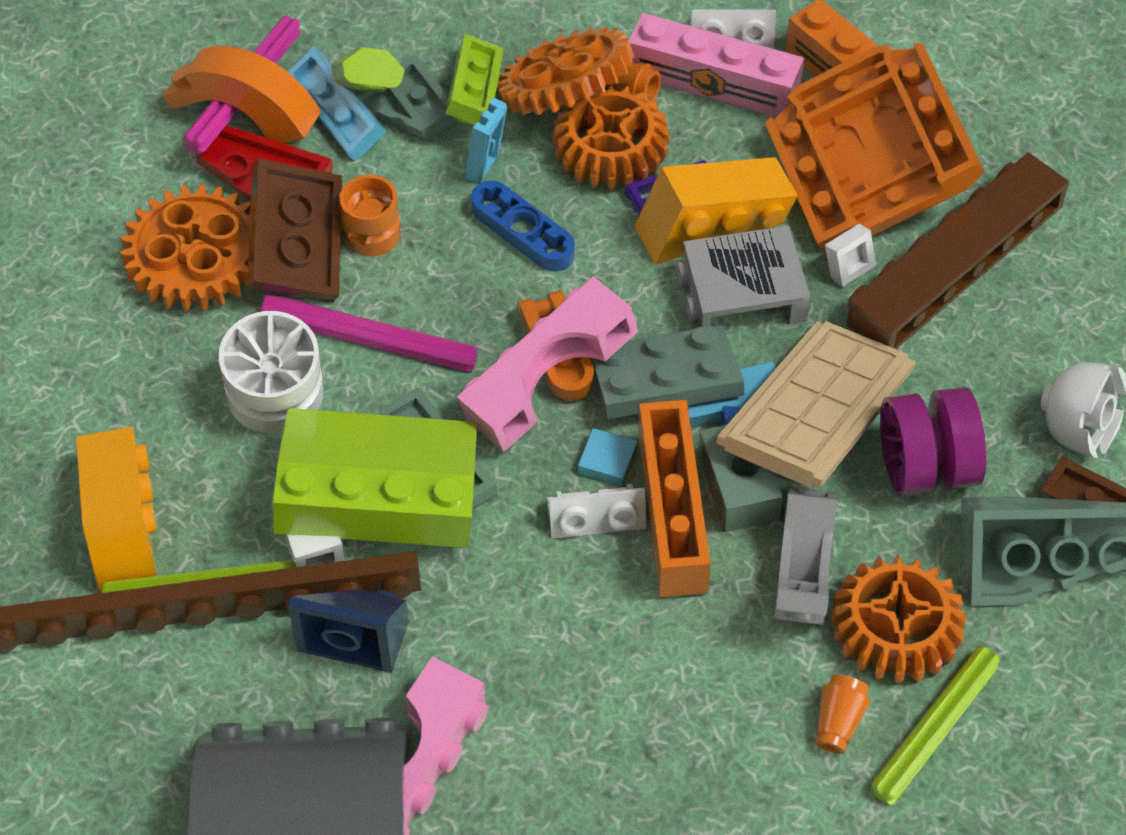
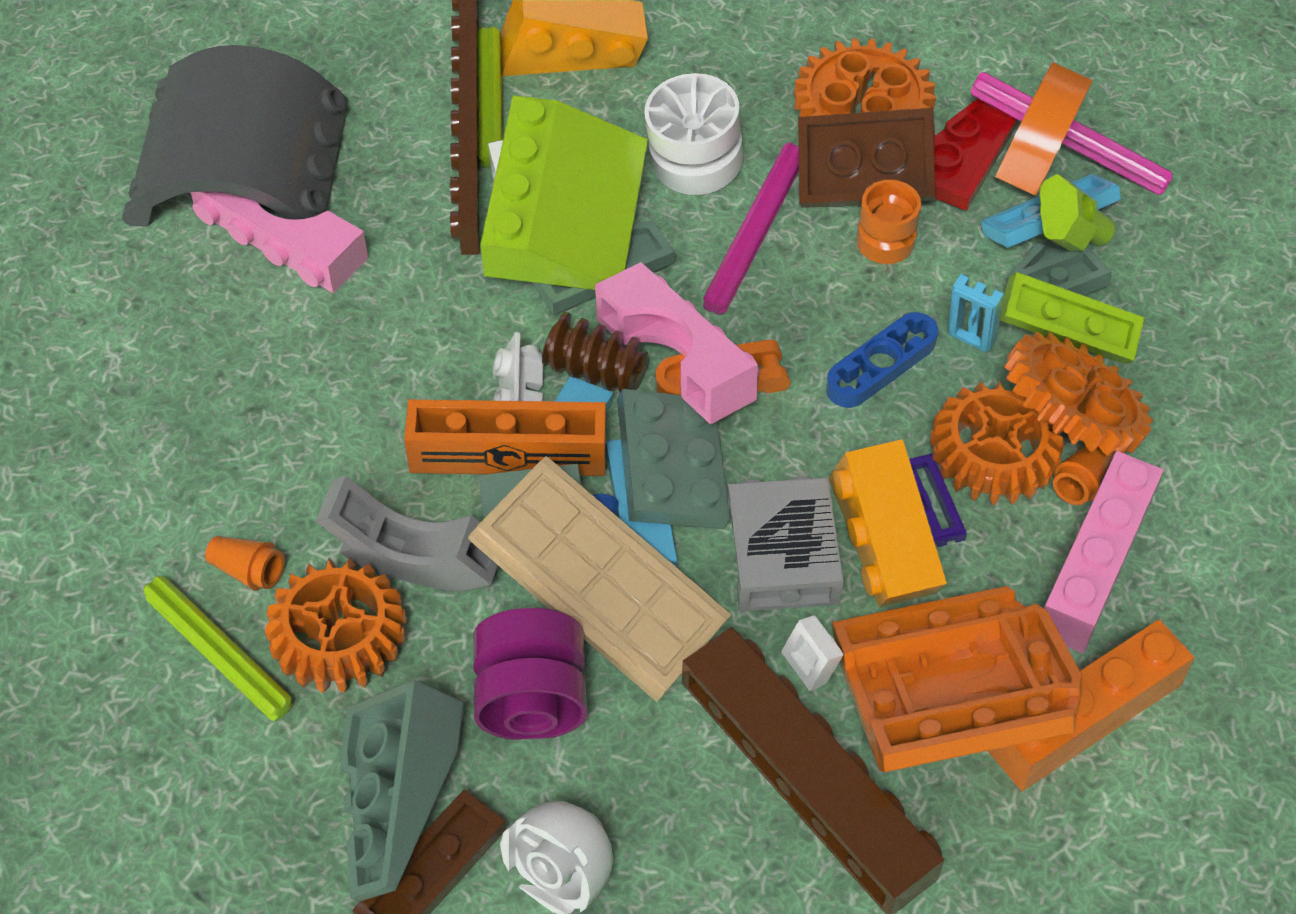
camera: 95 degrees right, 0 degrees up
(350, 626) = (409, 183): dark blue slope -> none
(556, 441) = (594, 356): none -> reddish brown piece
(745, 25) = (1170, 568): white hinge -> none

